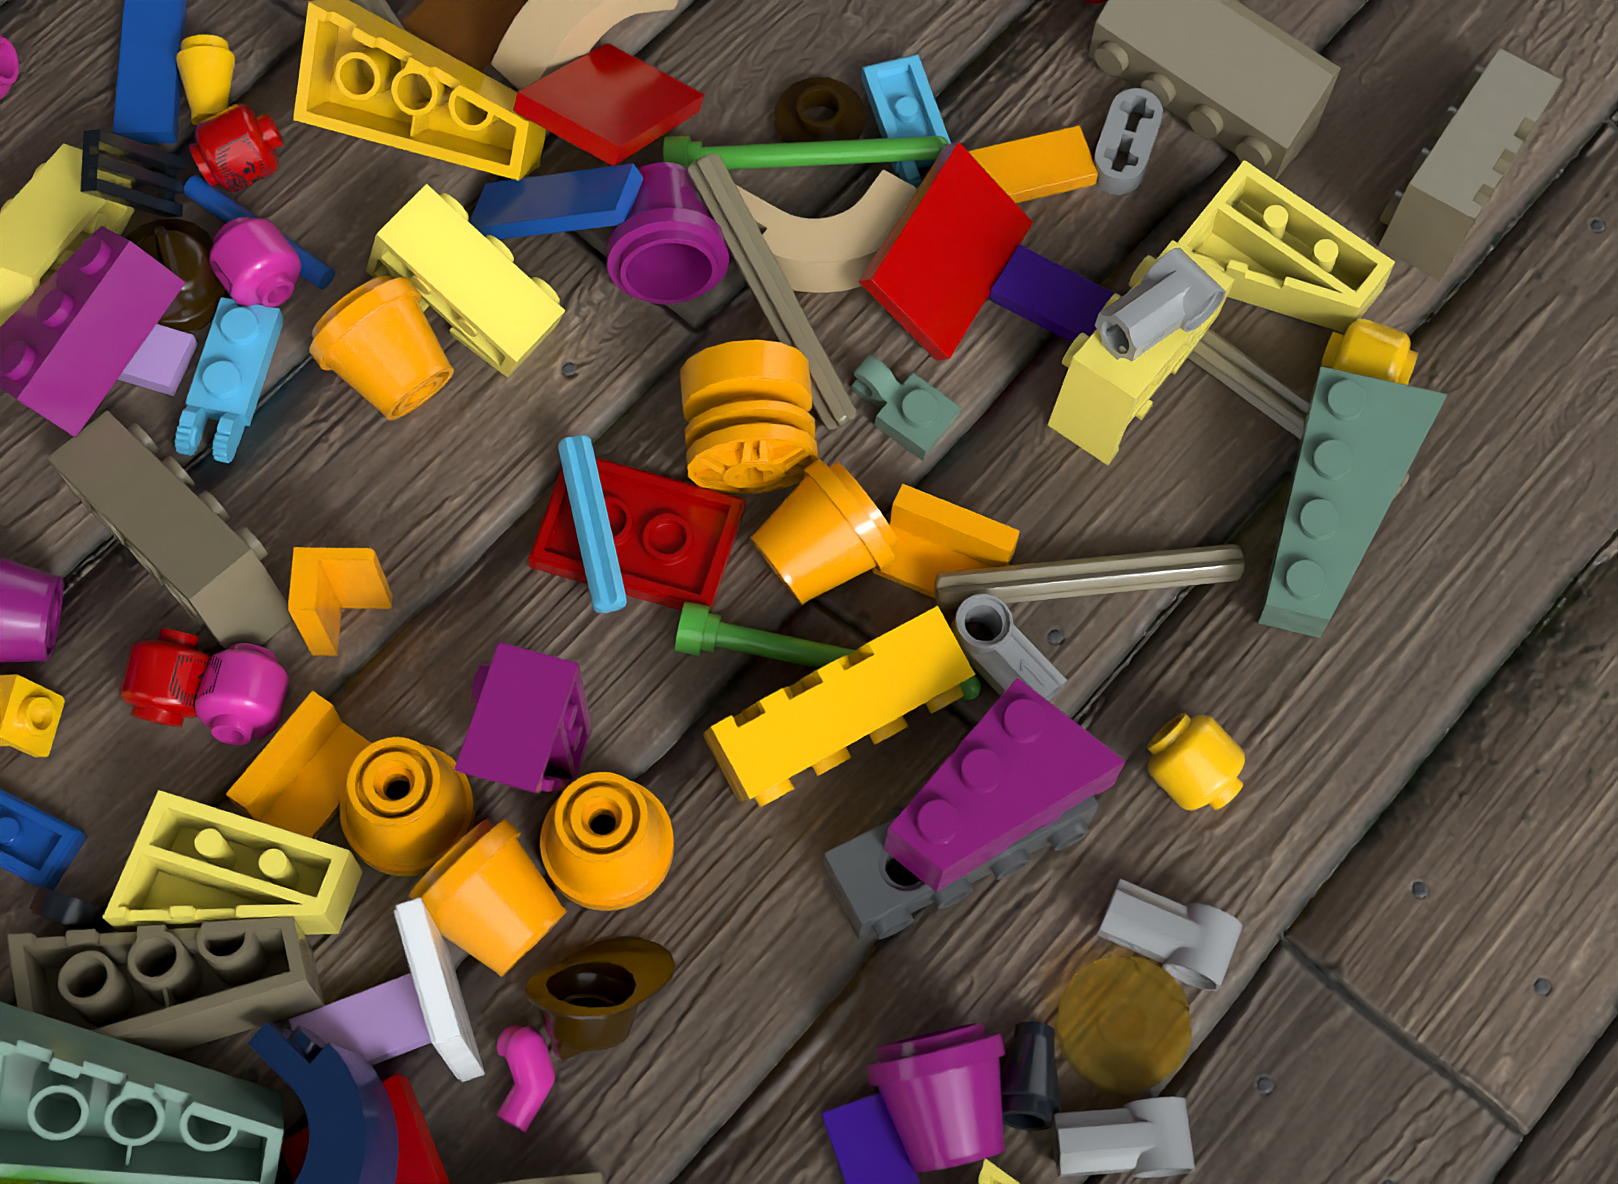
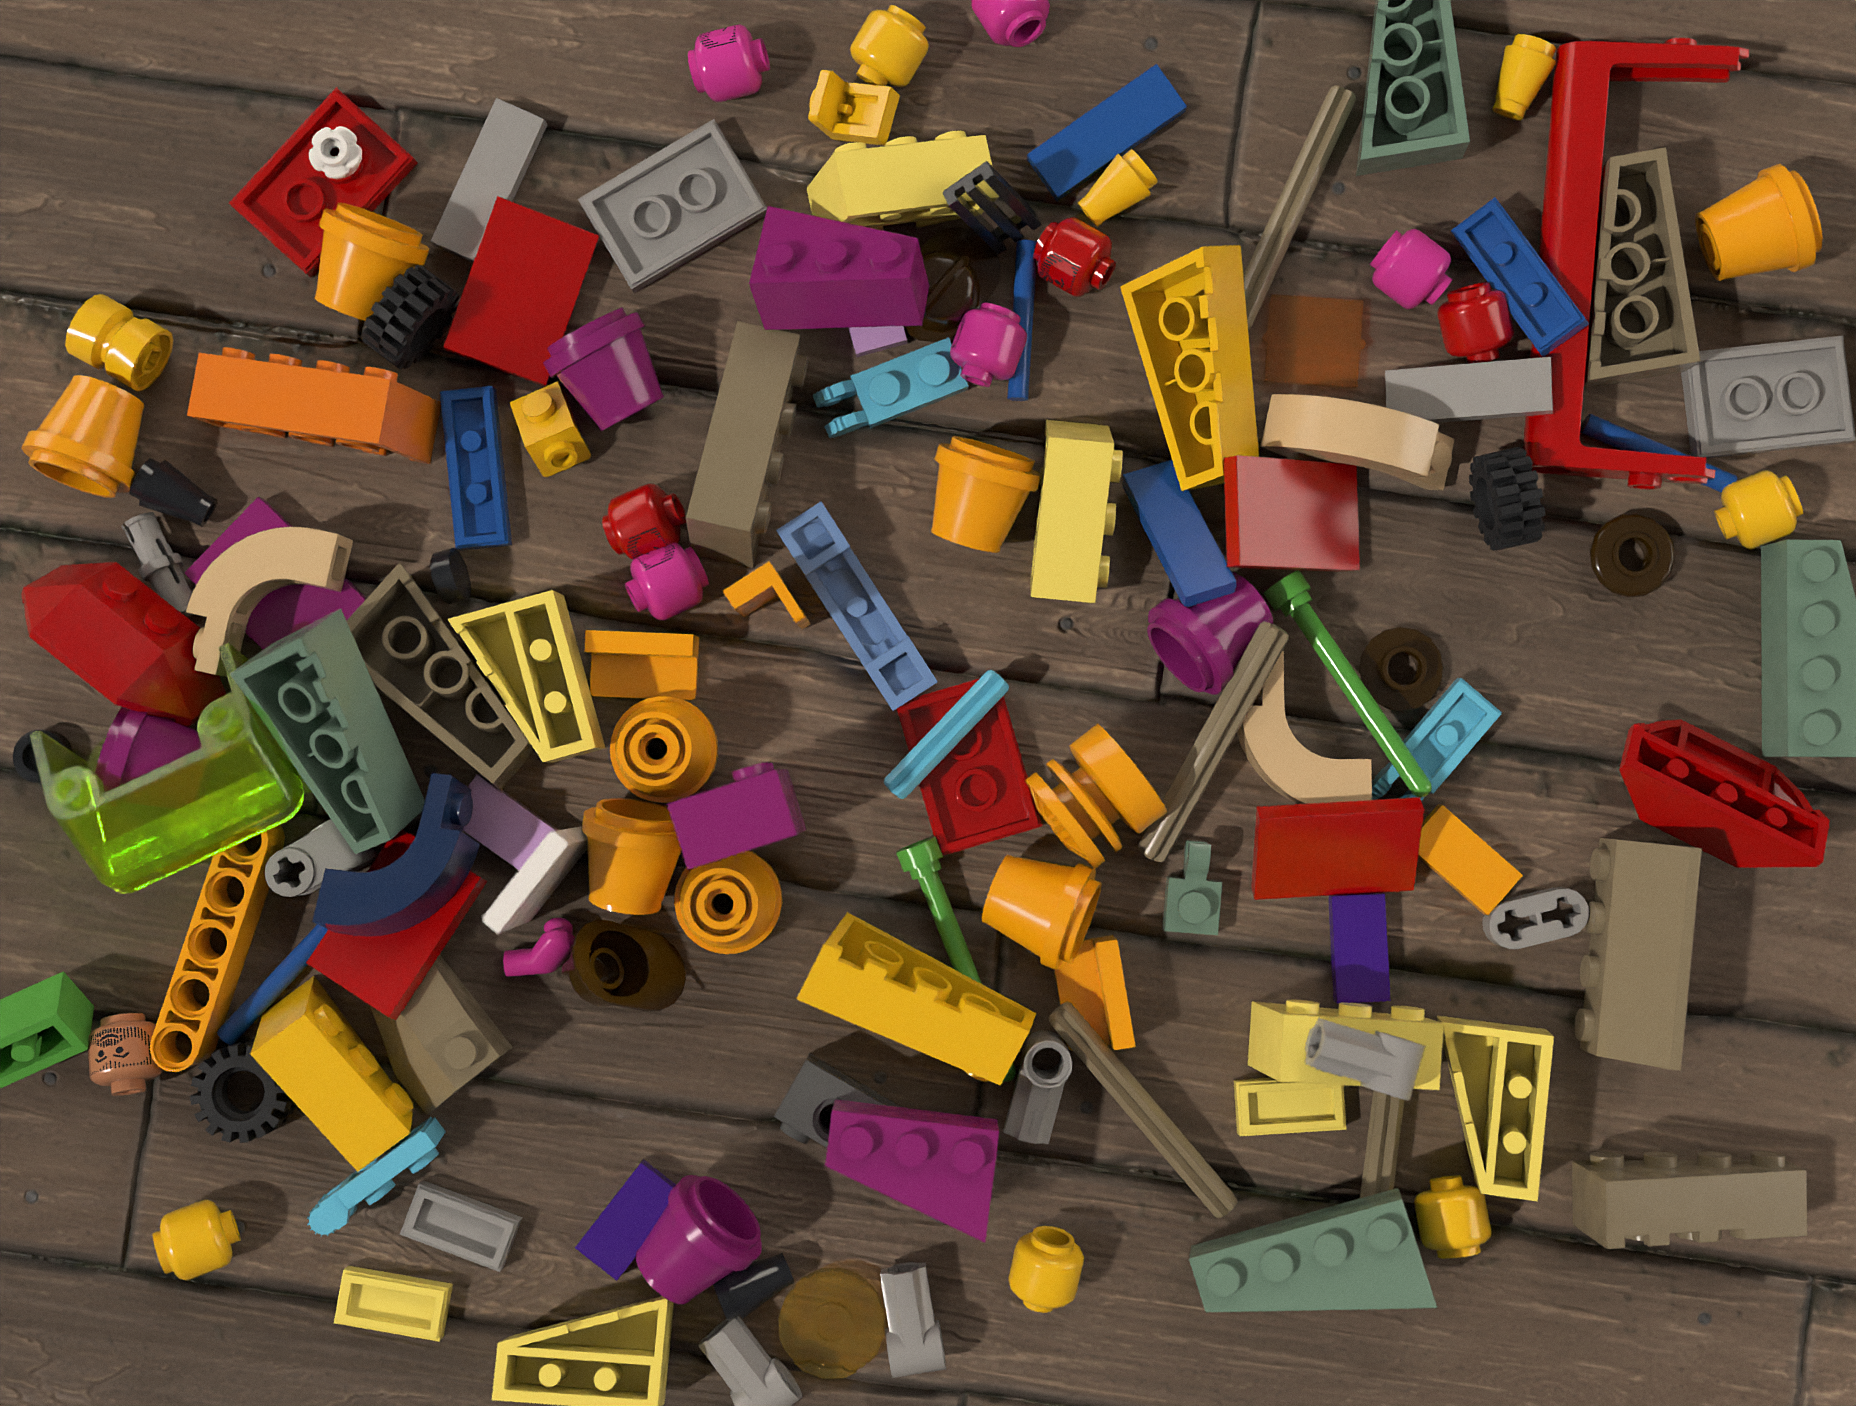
camera: 60 degrees right, 20 degrees up
(411, 538) = (856, 606): none -> medium blue slope
(1170, 448) = (1287, 1107): none -> light yellow tile

